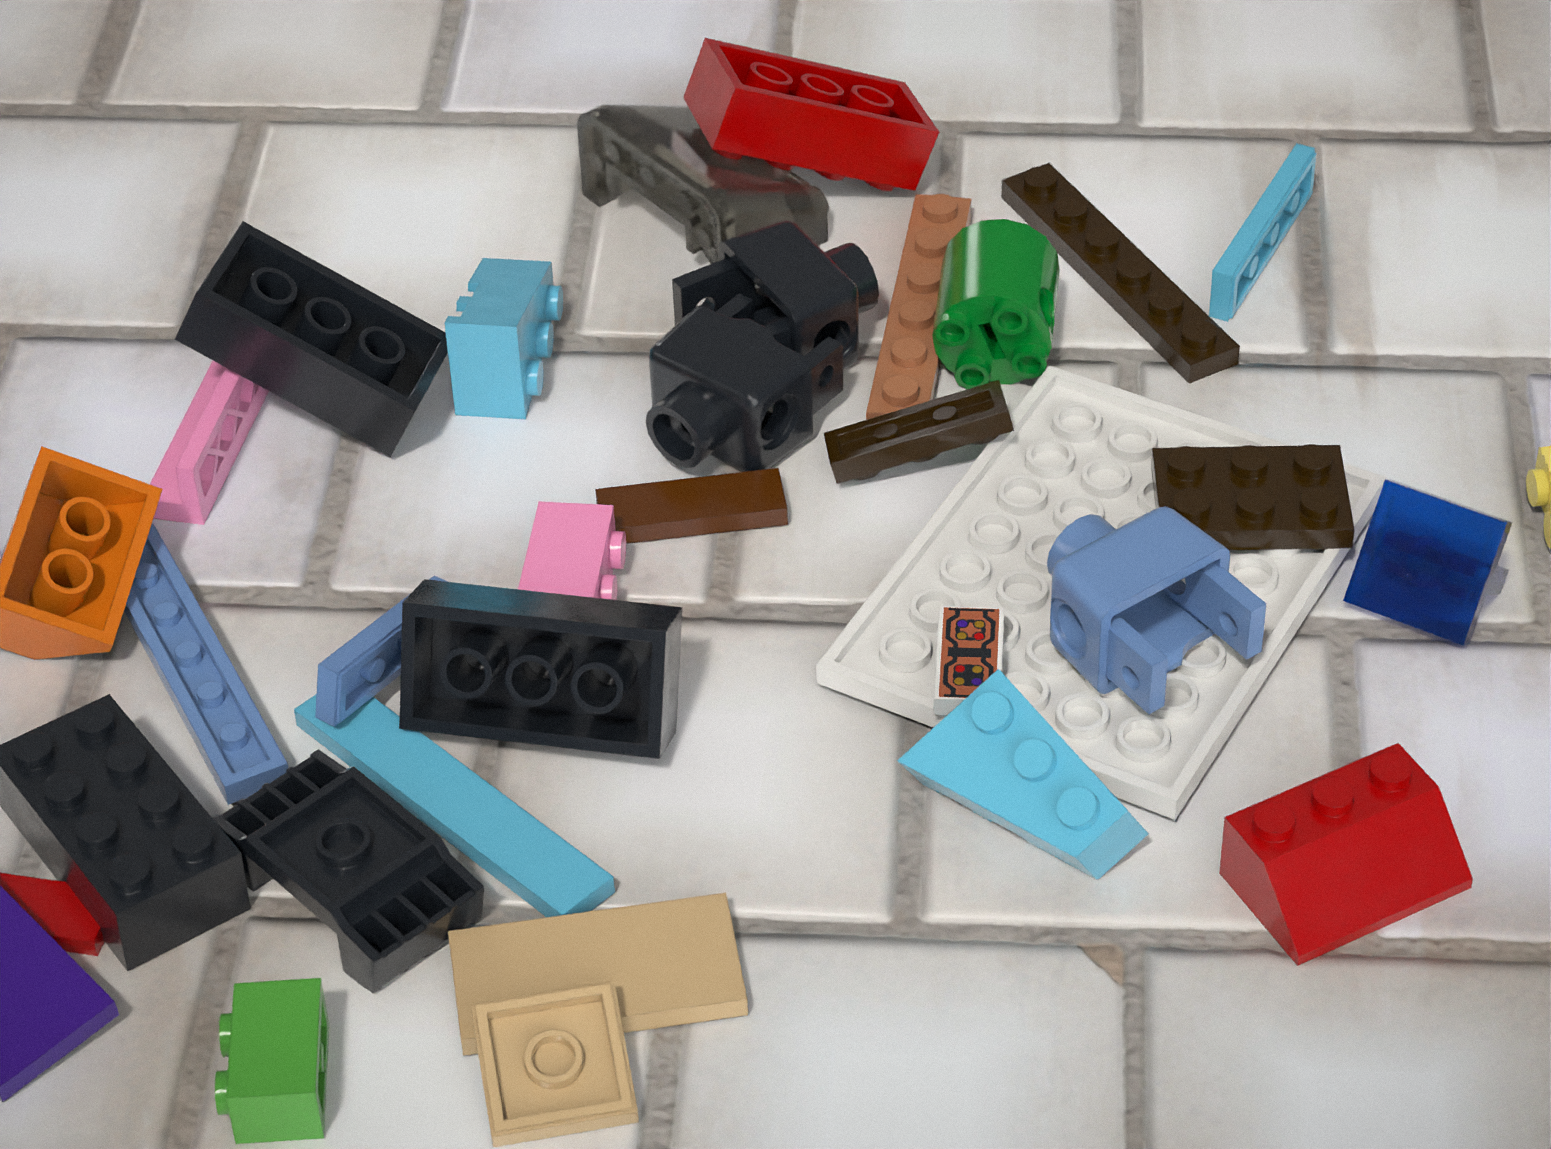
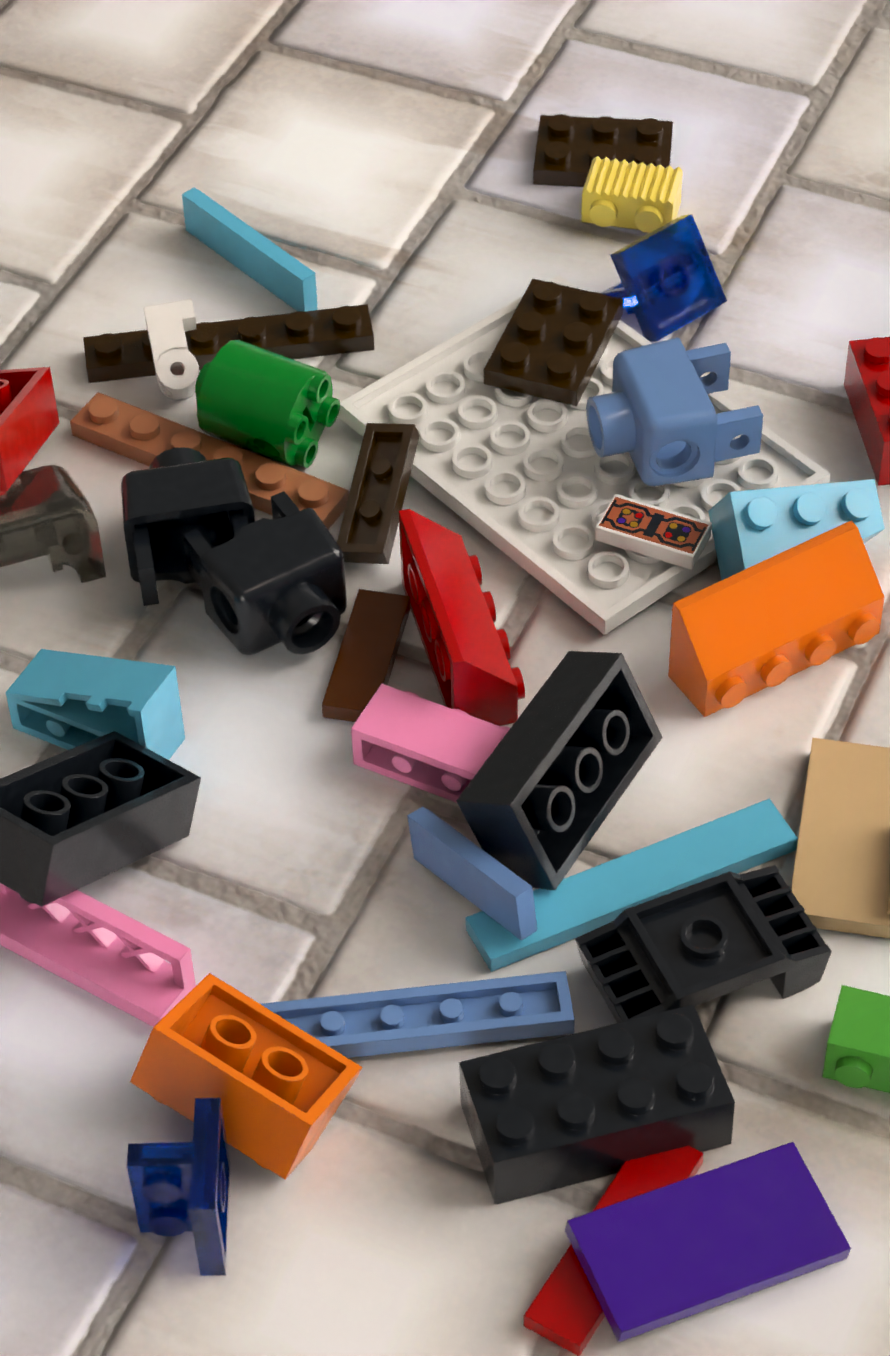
camera: 70 degrees left, 5 degrees up
(743, 530) = (457, 622): none -> red slope
(874, 799) = (774, 620): none -> orange slope
(1056, 203) = (173, 363): none -> white leg

